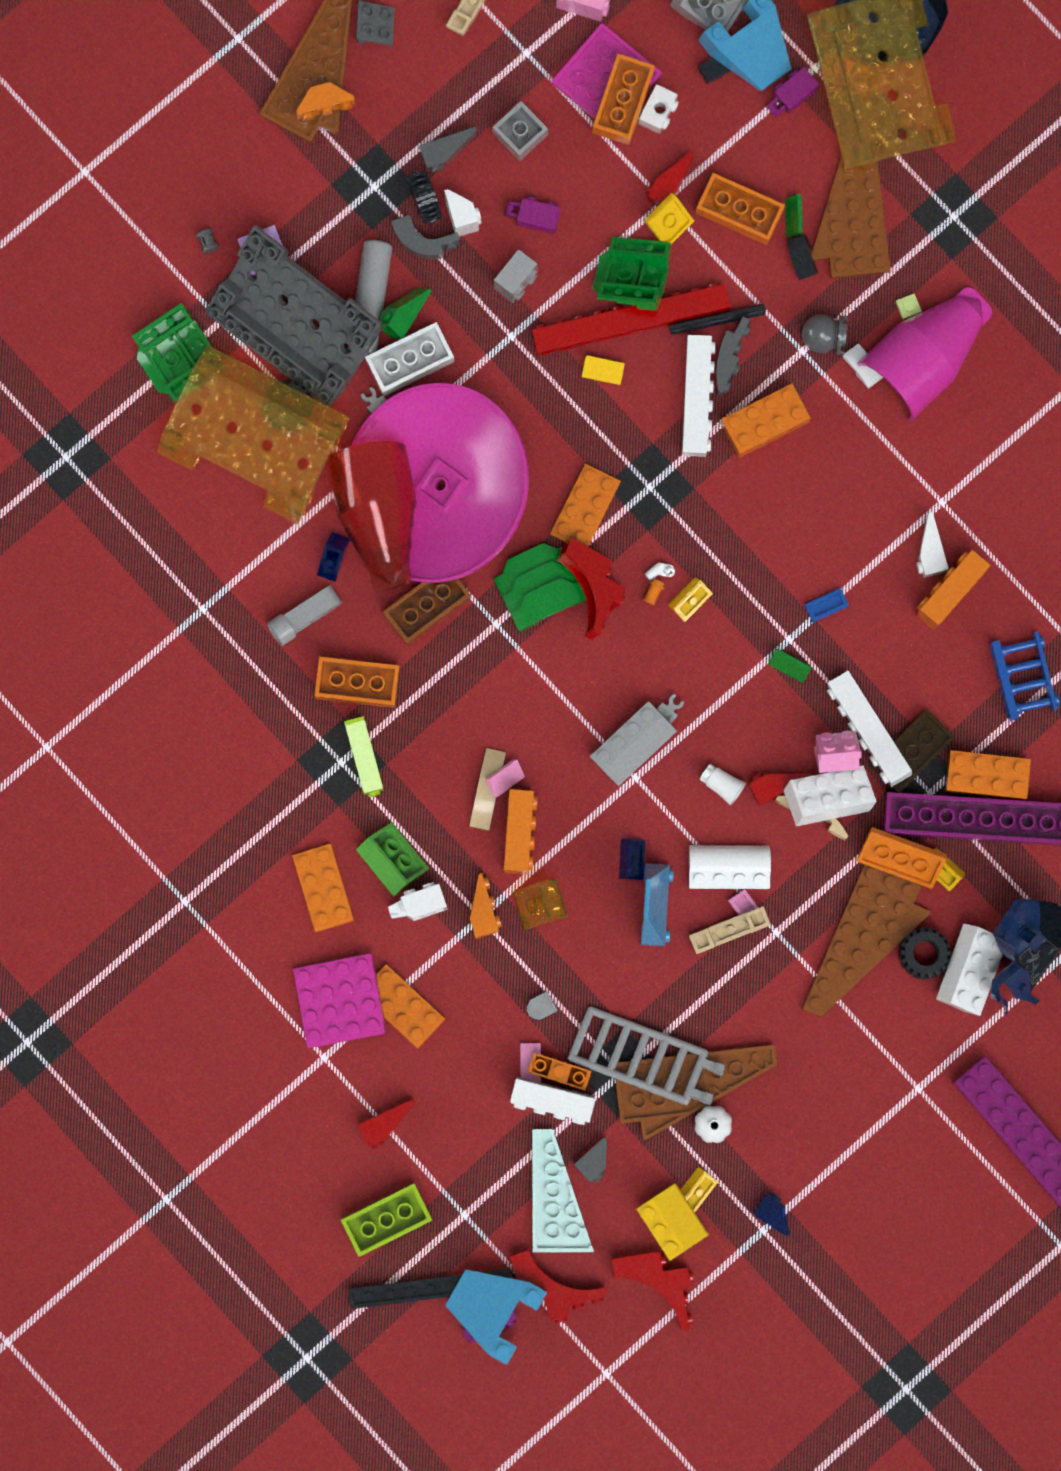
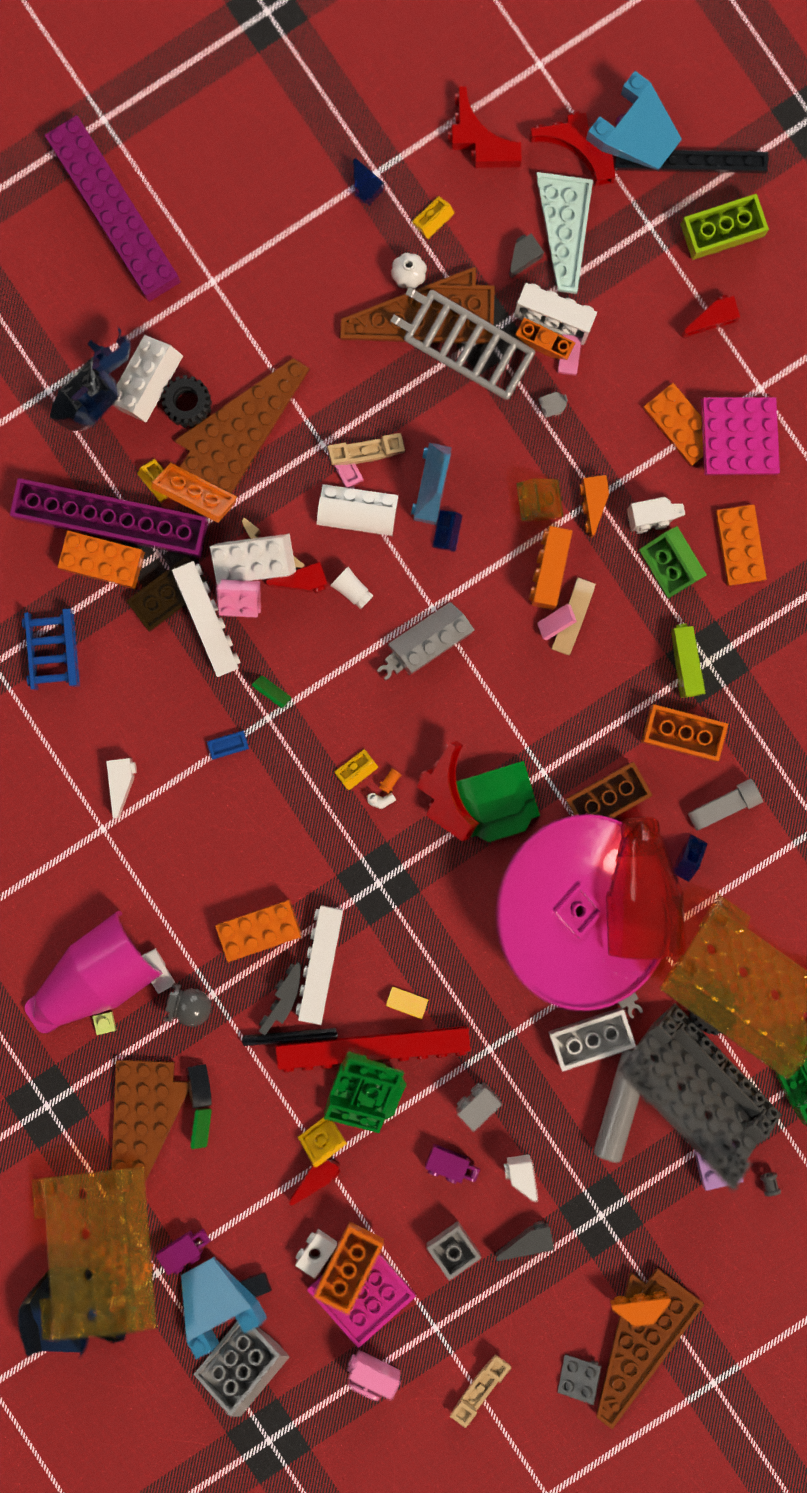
camera: 170 degrees left, 5 degrees up
(400, 315) = (595, 1083): green slope -> none
(421, 246) = (567, 1150): dark grey arch -> none
(424, 196) = (556, 1198): black gear -> none
(585, 506) = (443, 872): orange plate -> none
(672, 1221) = (460, 187): yellow slope -> none
(740, 209) = (251, 1142): orange brick -> none
(951, 592) = (104, 740): orange brick -> none

